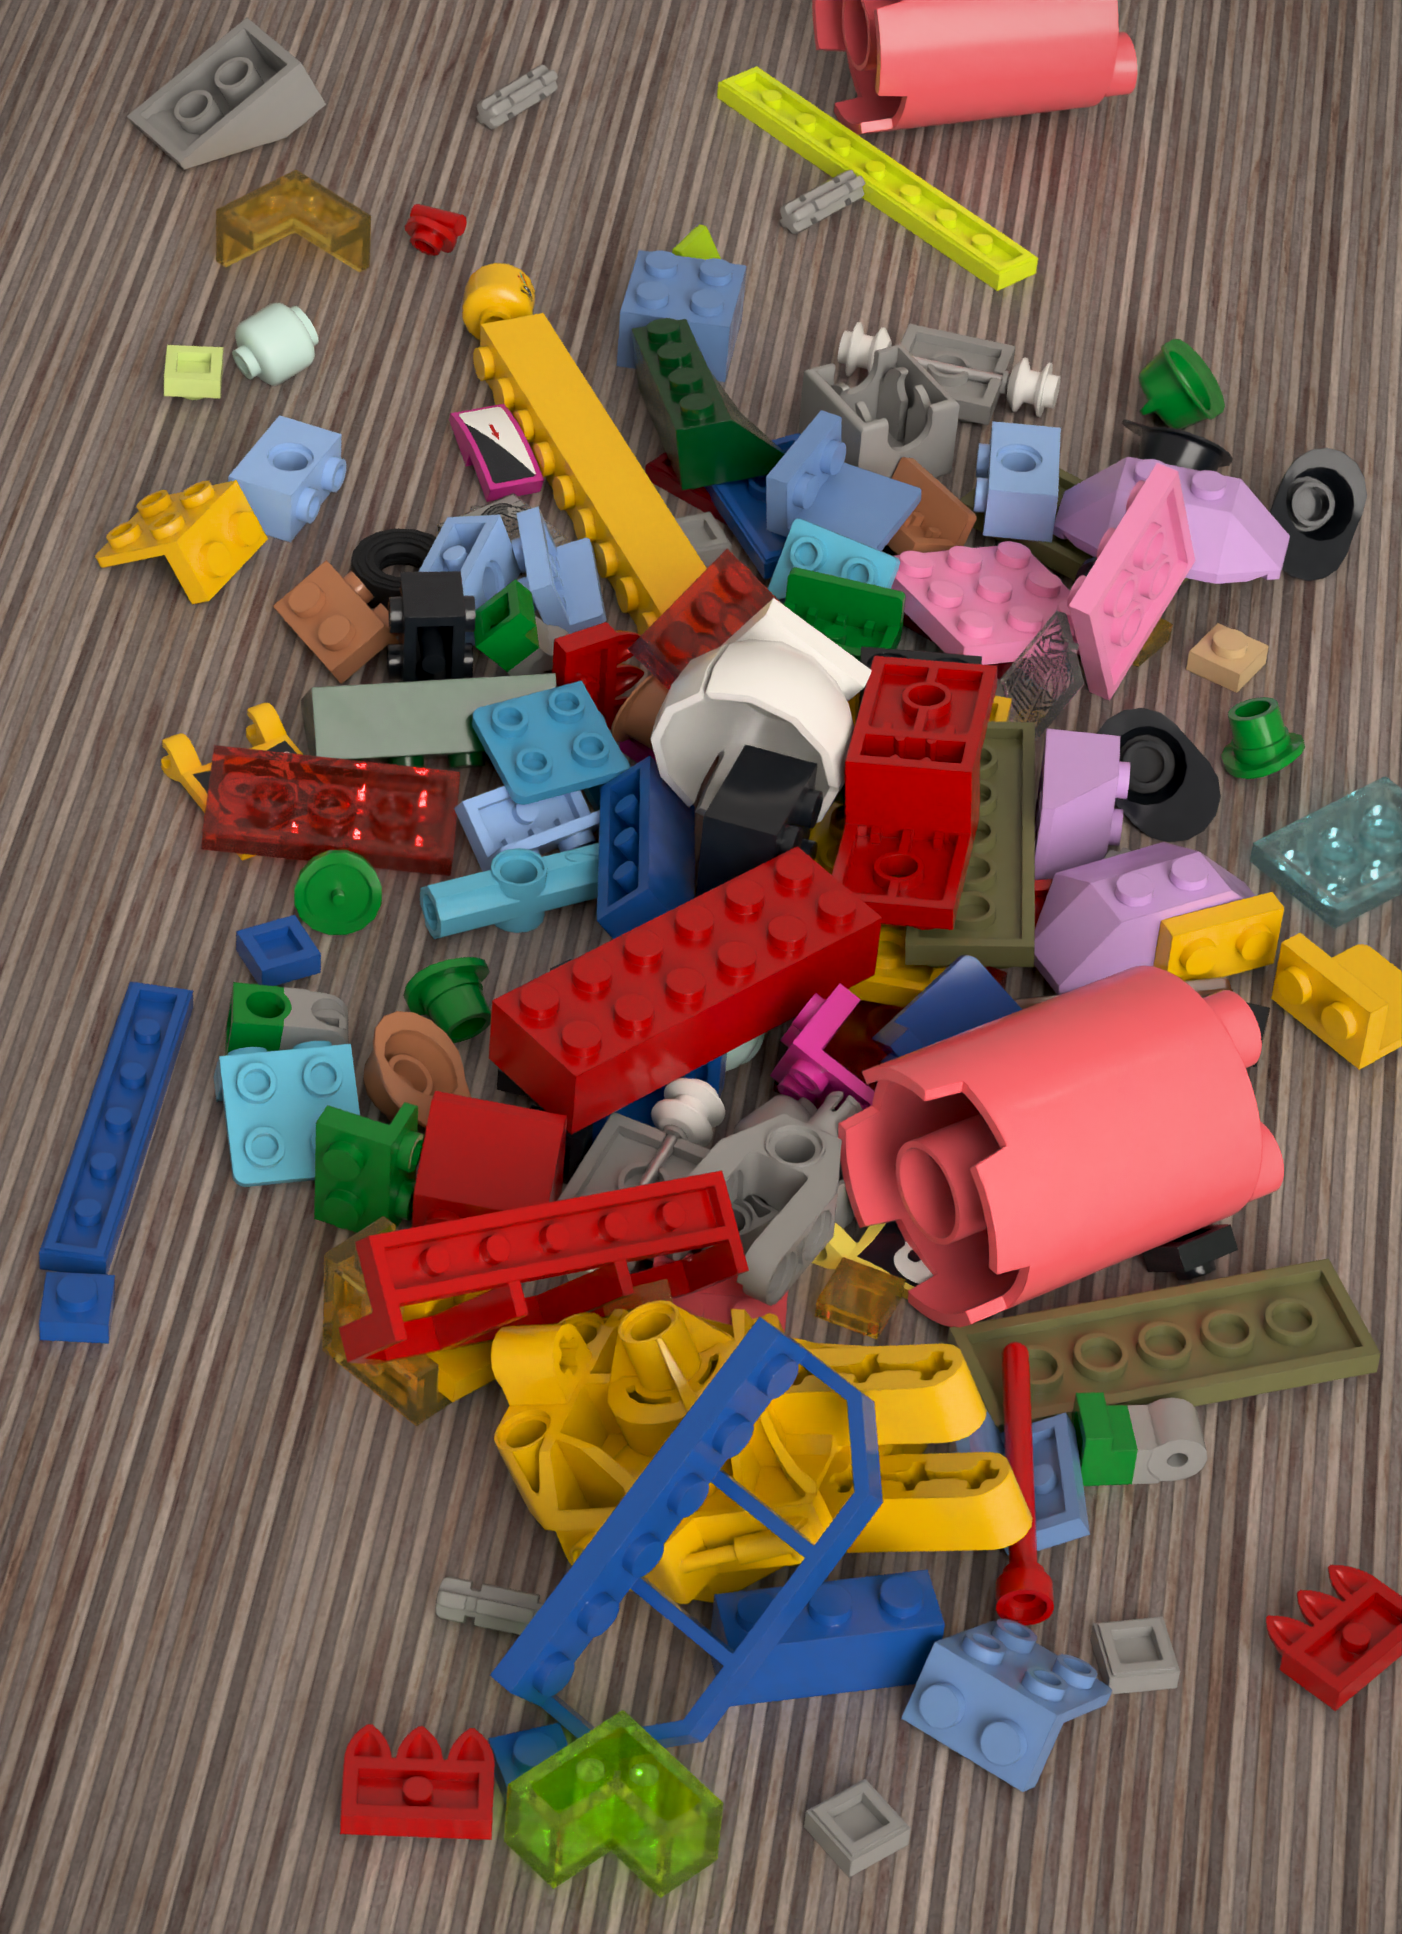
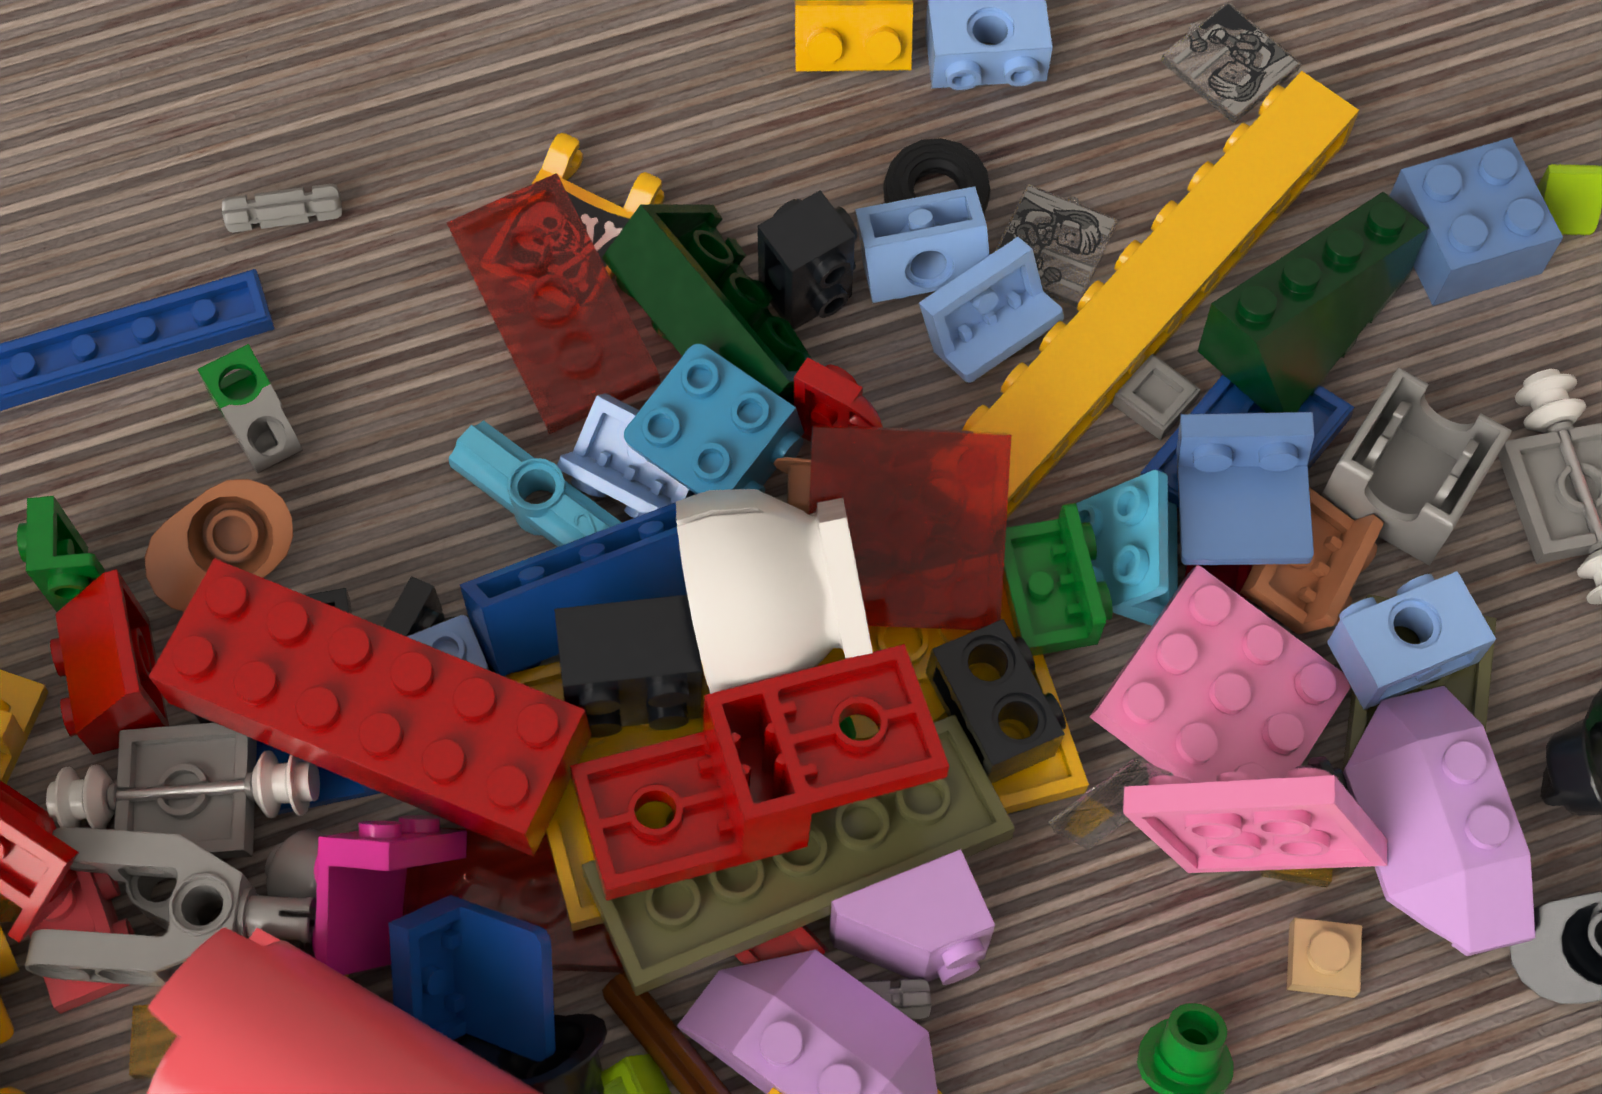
camera: 65 degrees right, 25 degrees up
(74, 946) = (282, 208): none -> light grey axle
(275, 1106) = (150, 462): medium azure bracket -> none
(278, 951) = (353, 355): blue plate -> none
(336, 621) = (829, 158): nougat bracket -> none
(337, 892) = (449, 356): green piece -> none
(414, 379) = (1230, 62): none -> piece
(452, 996) = (357, 520): green piece -> none
(496, 294) = (1371, 68): yellow head -> none
(497, 450) = (1158, 173): slope -> none
(513, 633) = (866, 334): green leg -> none
(1170, 782) = (1051, 974): black piece -> none

